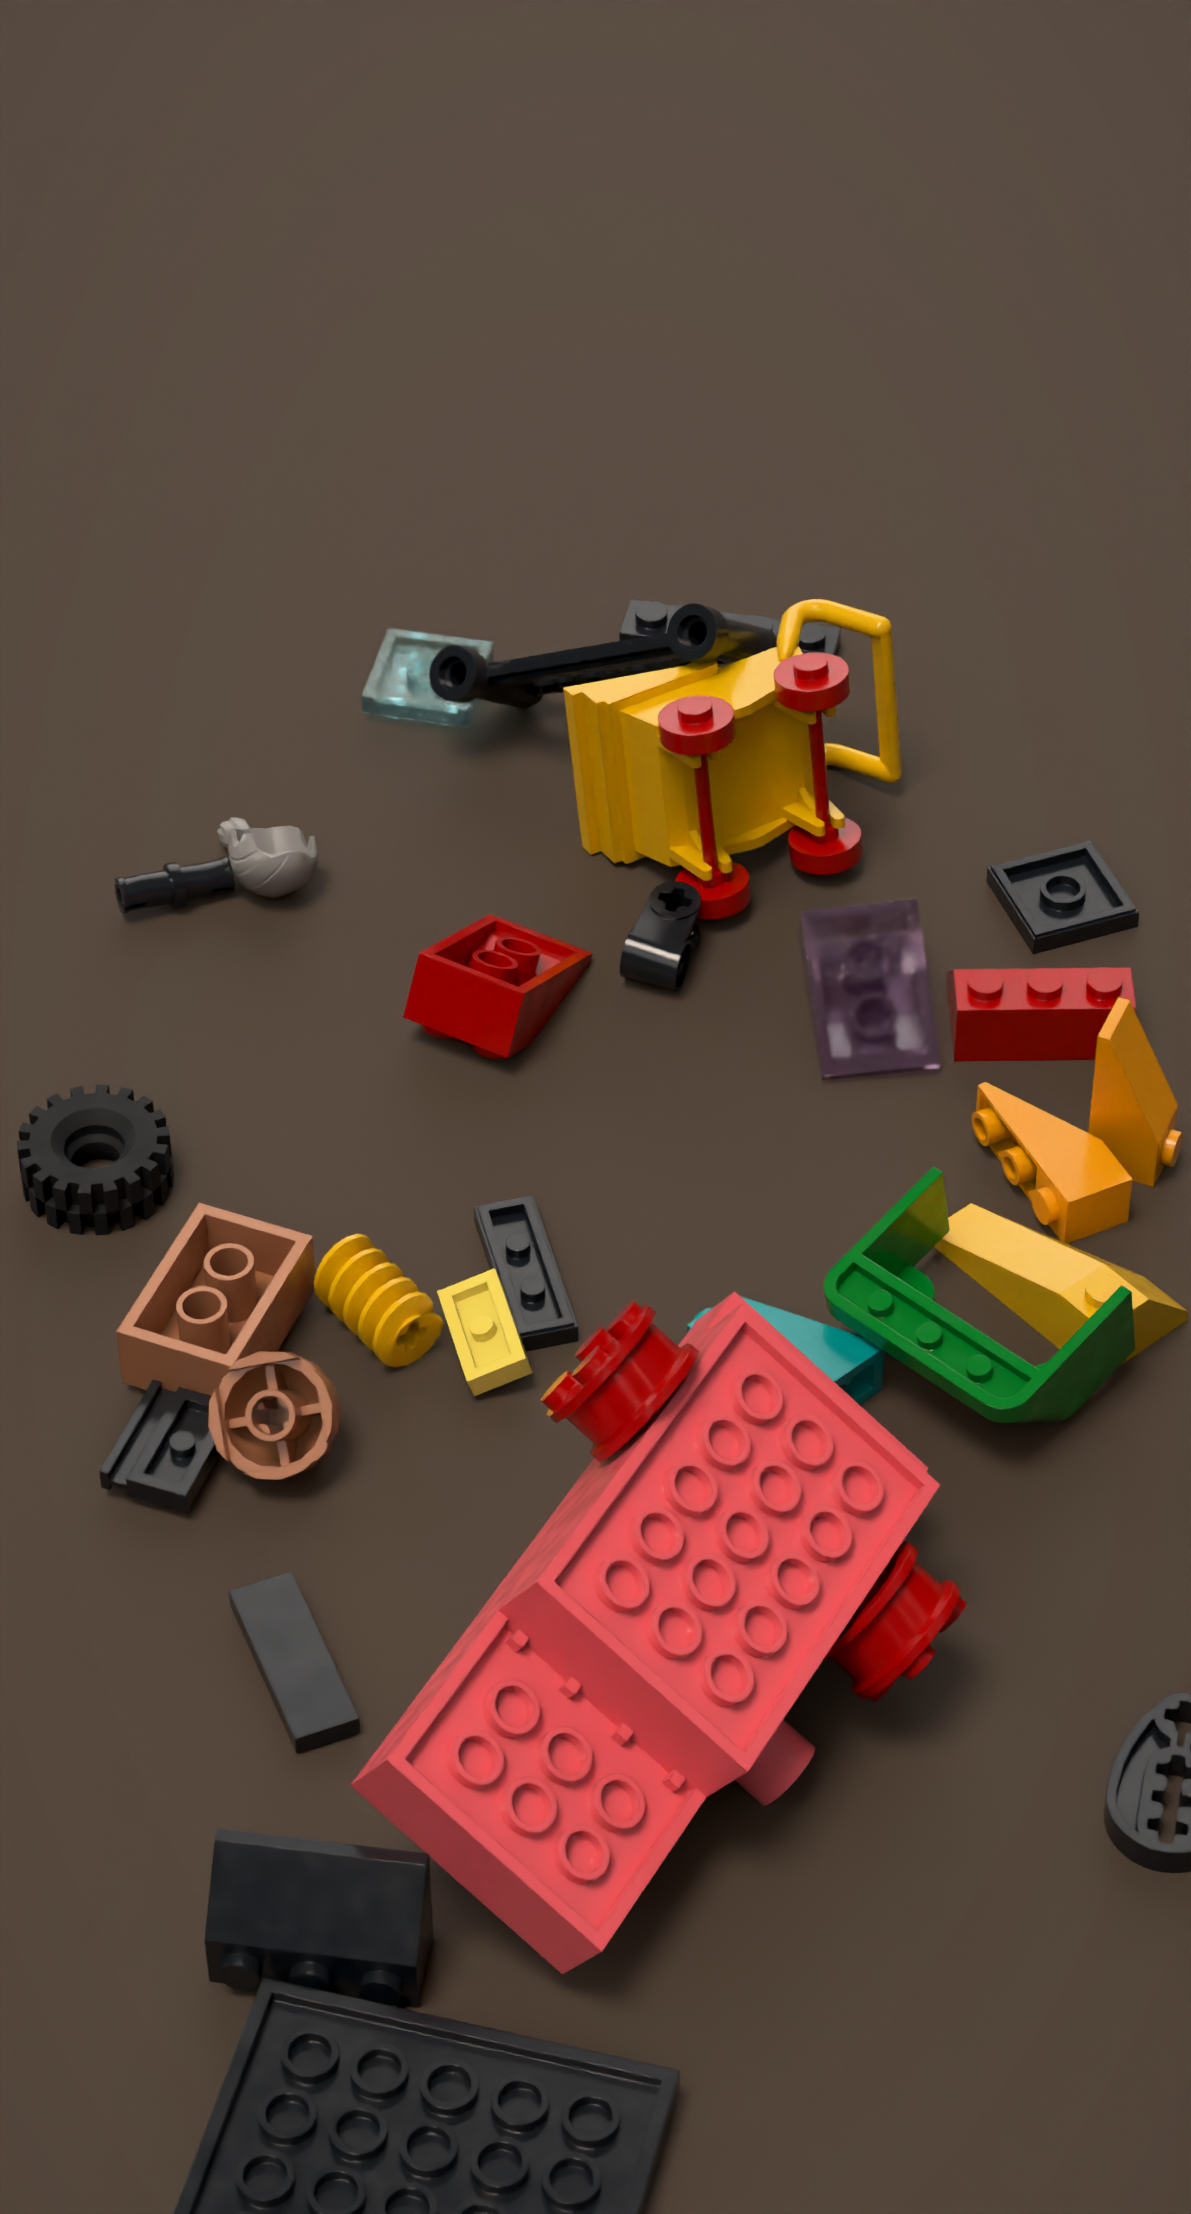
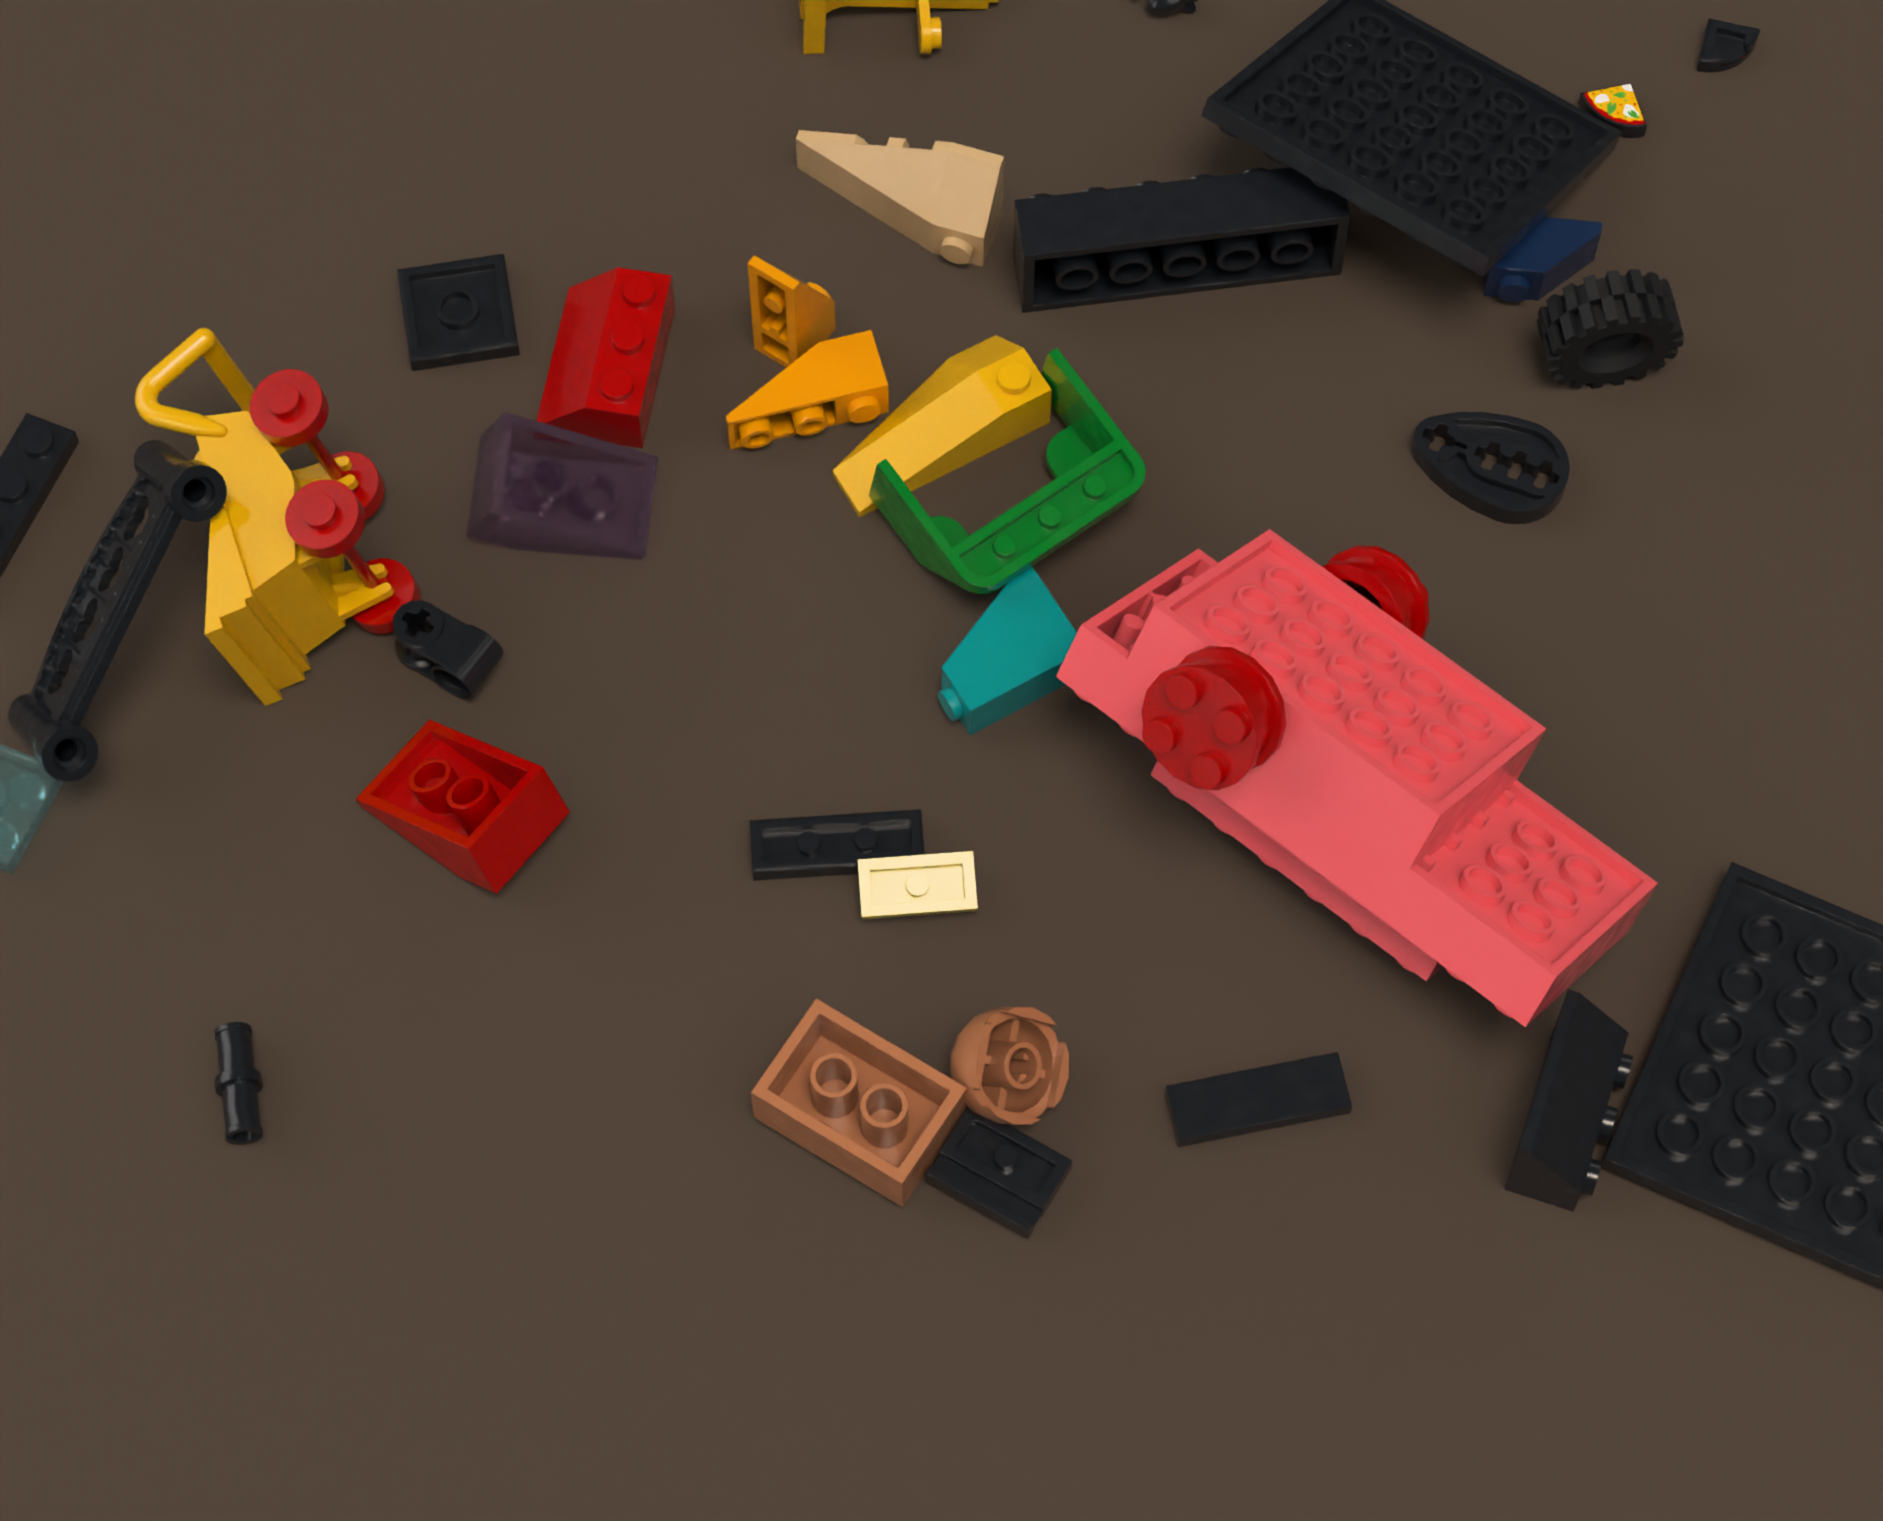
camera: 80 degrees left, 20 degrees up
(91, 1129) = (612, 1155): black tyre -> none
(269, 859) = (227, 984): light grey hair -> none
(377, 1301) = (865, 966): yellow piece -> none

